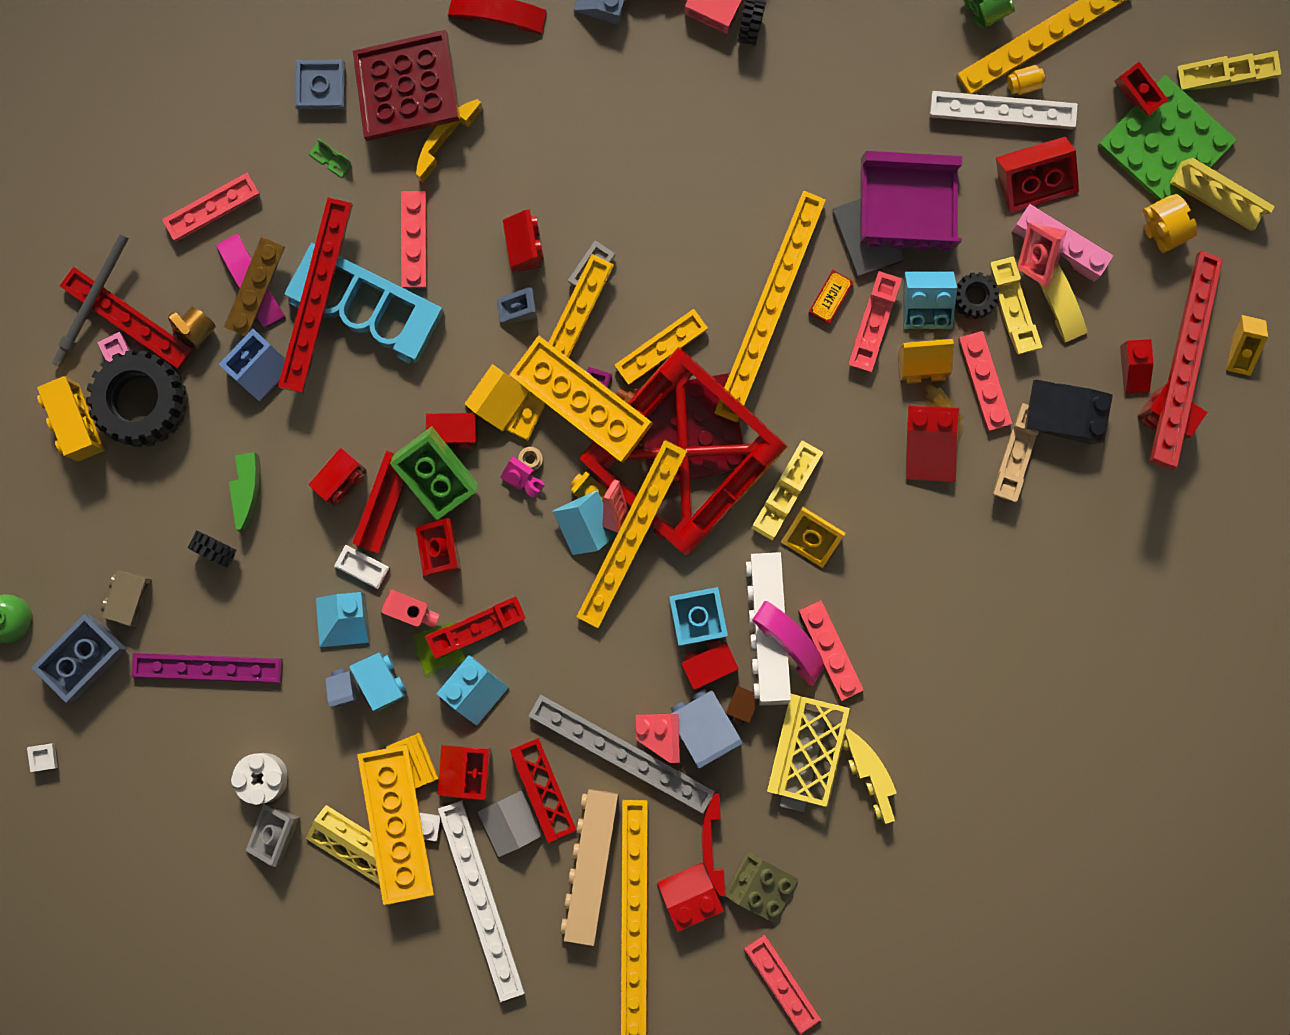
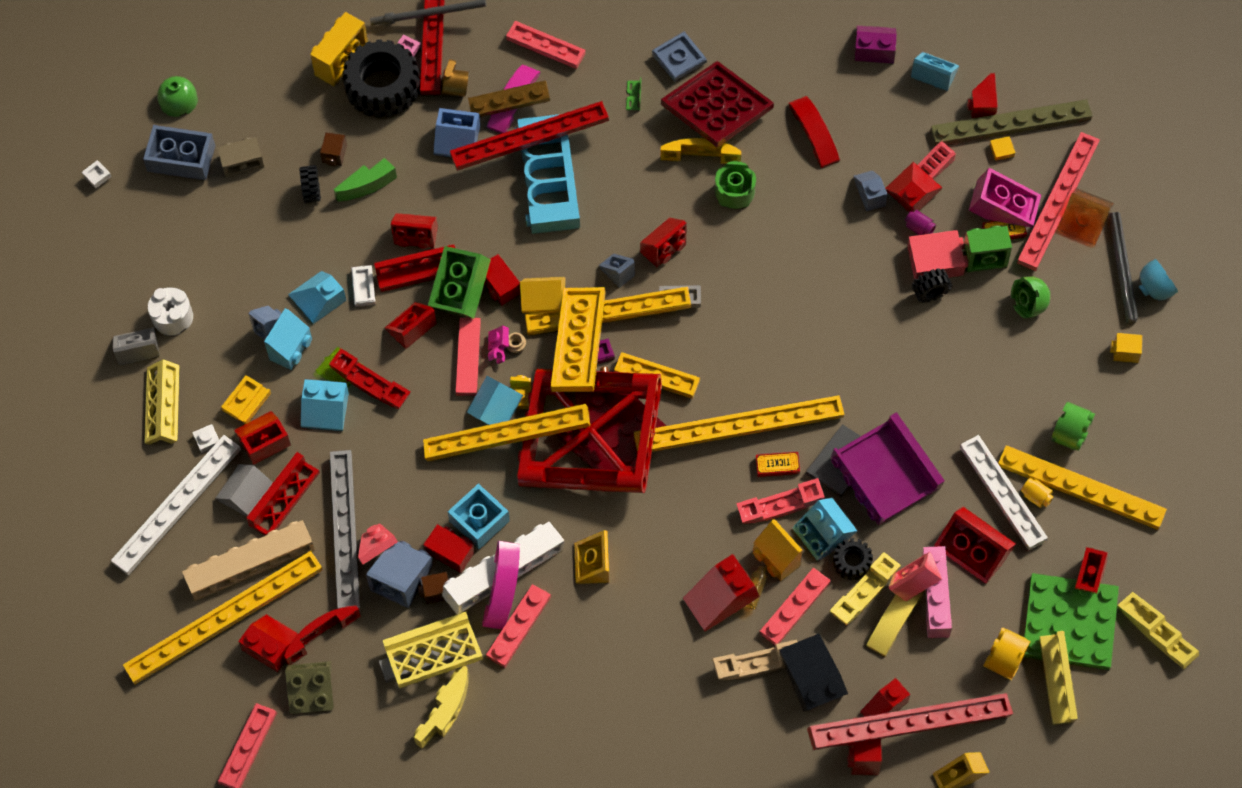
camera: 55 degrees right, 20 degrees down
(184, 499) = (333, 149): none -> reddish brown brick
(207, 668) = (226, 235): magenta tile -> none
(395, 824) = (193, 410): yellow plate -> none
(398, 604) = (352, 327): coral torso -> none
(413, 240) = (616, 177): coral plate -> none
(510, 144) = (735, 185): none -> bright green brick
(514, 515) = (468, 357): none -> coral tile
(614, 507) = (518, 408): coral slope -> none
(787, 490) = (615, 522): light yellow slope -> none

